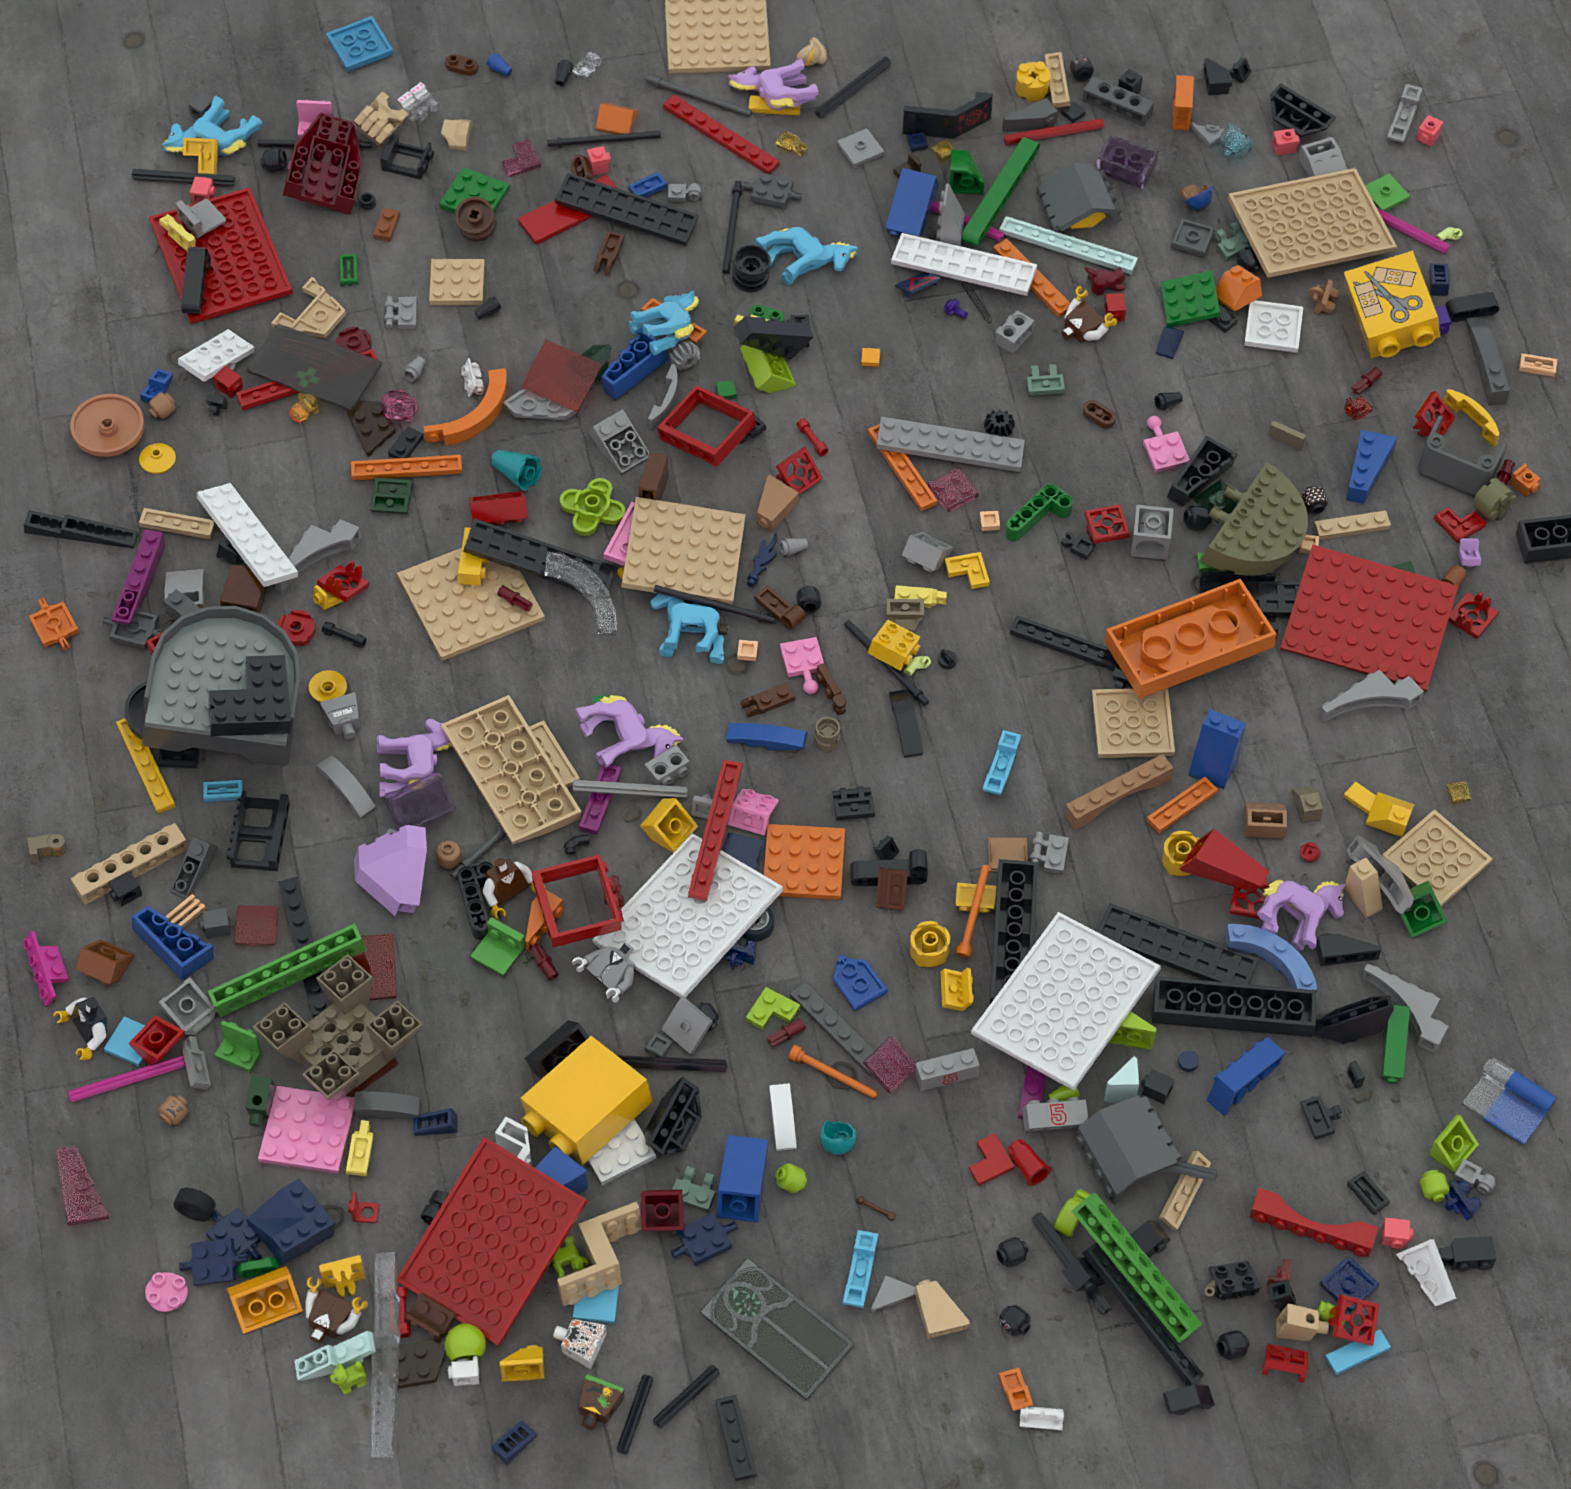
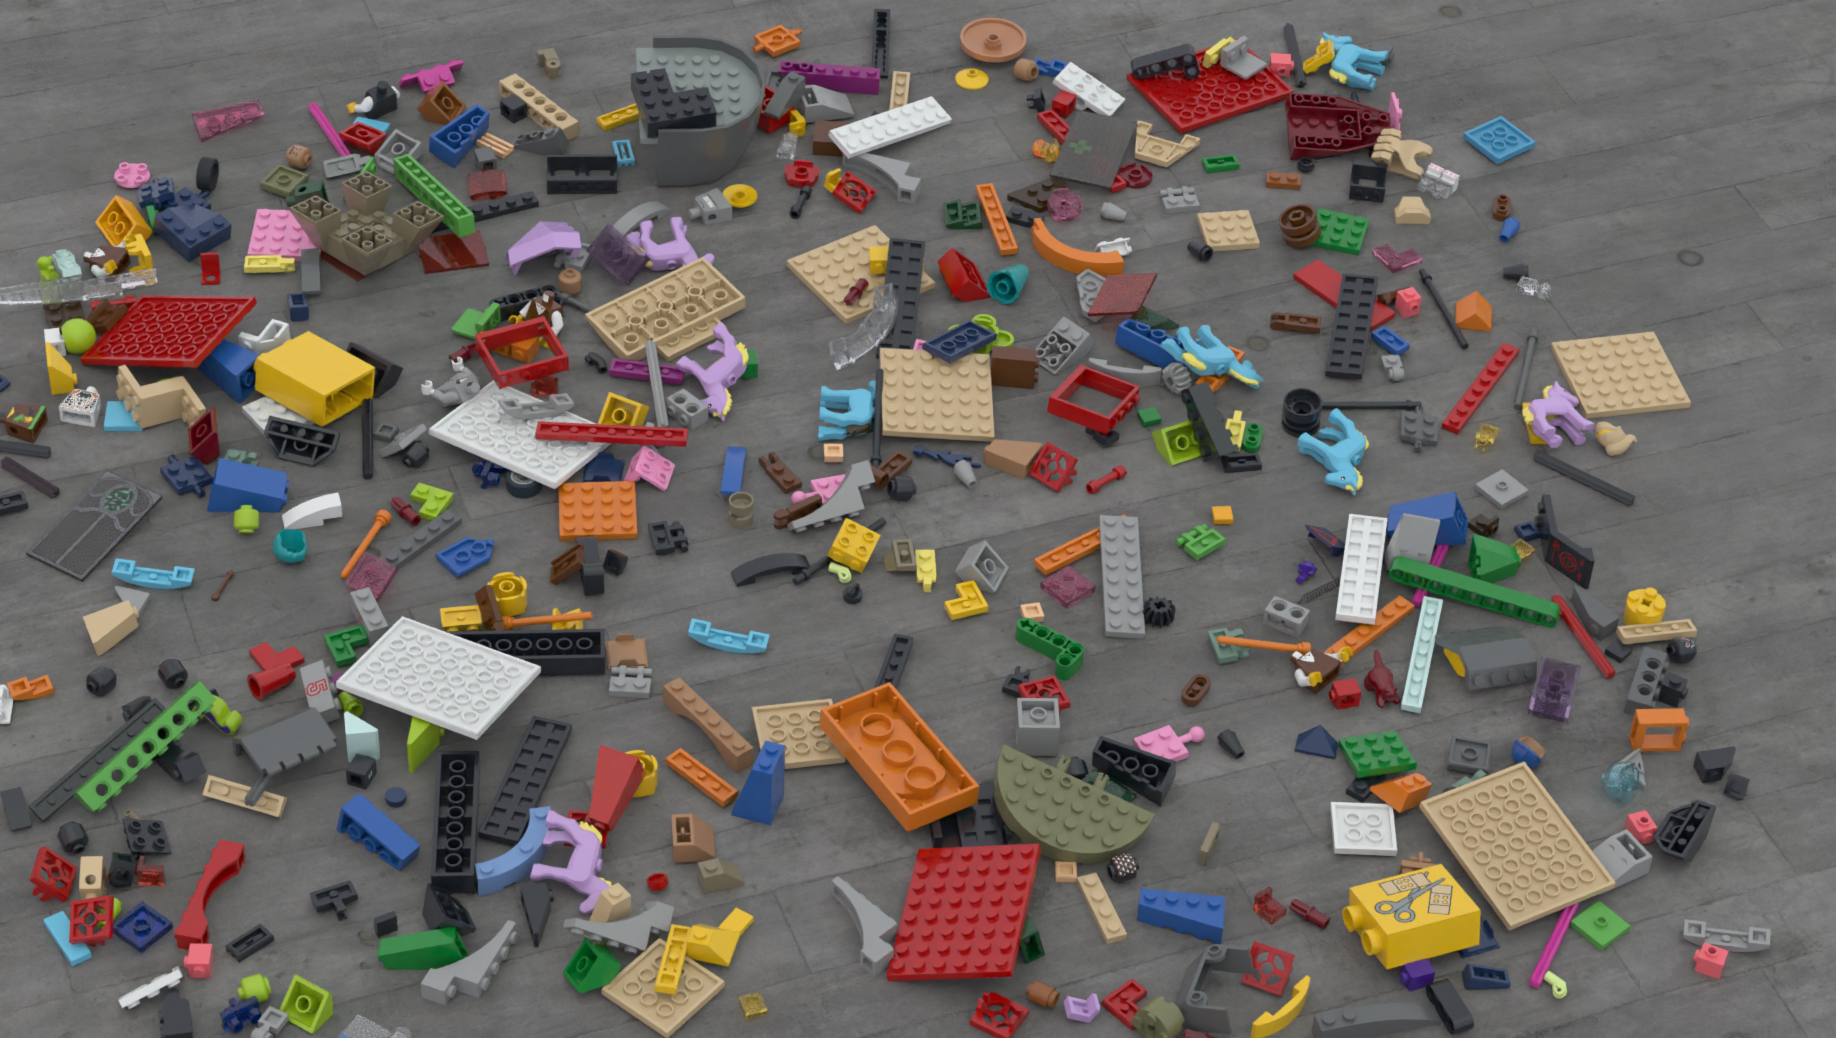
camera: 80 degrees right, 15 degrees down
(210, 1129) = (283, 181): none -> olive plate
(620, 516) = (959, 341): none -> dark blue tile
(655, 895) = (557, 404): none -> light grey slope
(829, 649) = (843, 502): none -> light grey arch
(910, 375) = (1204, 542): none -> bright green plate
(958, 959) = (489, 609): none -> reddish brown hinge
(977, 1099) = (342, 642): none -> green plate
(1056, 328) = (1303, 647): none -> orange piece
(1413, 843) = (672, 960): none -> yellow plate

